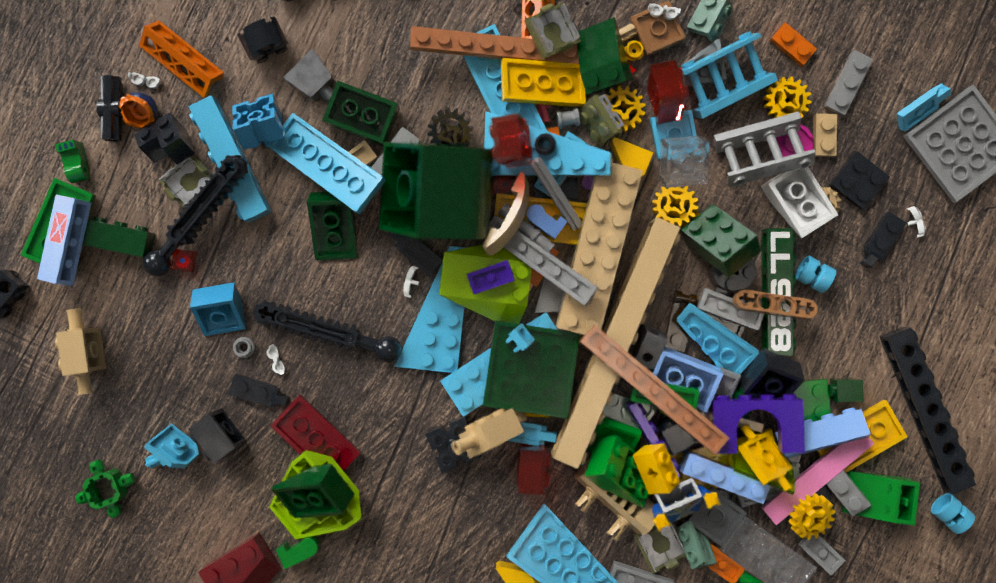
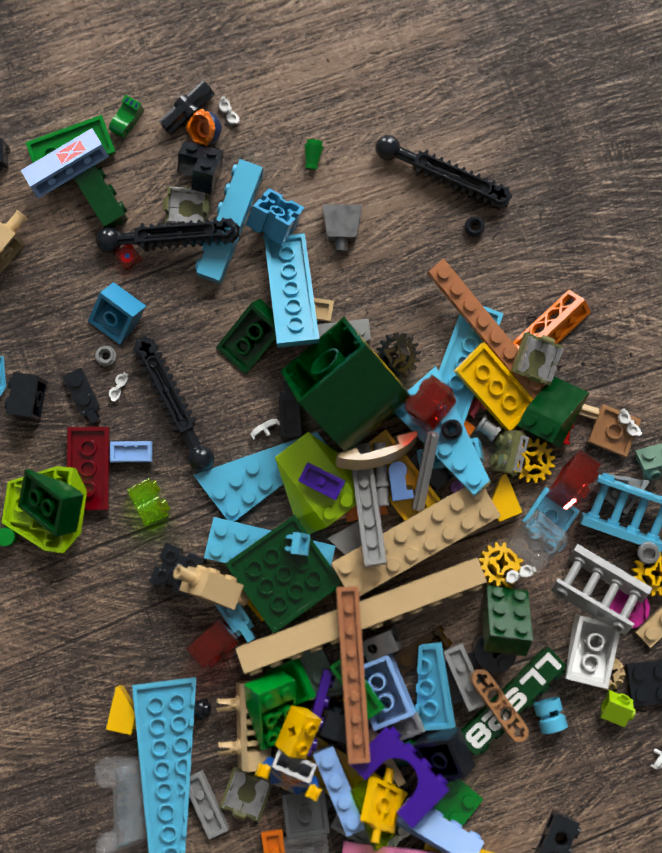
camera: 45 degrees right, 5 degrees down
(180, 53) = (271, 119): orange fence -> none
(235, 47) = (313, 153): none -> green cone
(263, 39) = (335, 165): black brick -> none
(333, 395) = (131, 452): none -> light blue plate
(361, 113) = (349, 281): dark green brick -> none
(382, 417) = (148, 501): none -> clear neon green brick
(504, 184) = (397, 428): clear red tile -> none
(571, 519) = (202, 708): none -> black plate
(639, 50) = (581, 424): yellow plate -> none
(696, 546) = (270, 819): sand green bracket -> none
(697, 192) = (524, 571): none -> white piece
(770, 89) = (648, 552): none -> light grey tile
(846, 390) = (489, 820): dark green brick -> none
(856, 221) = (617, 708): none -> lime brick
(882, 239) = (624, 741): black hinge -> none

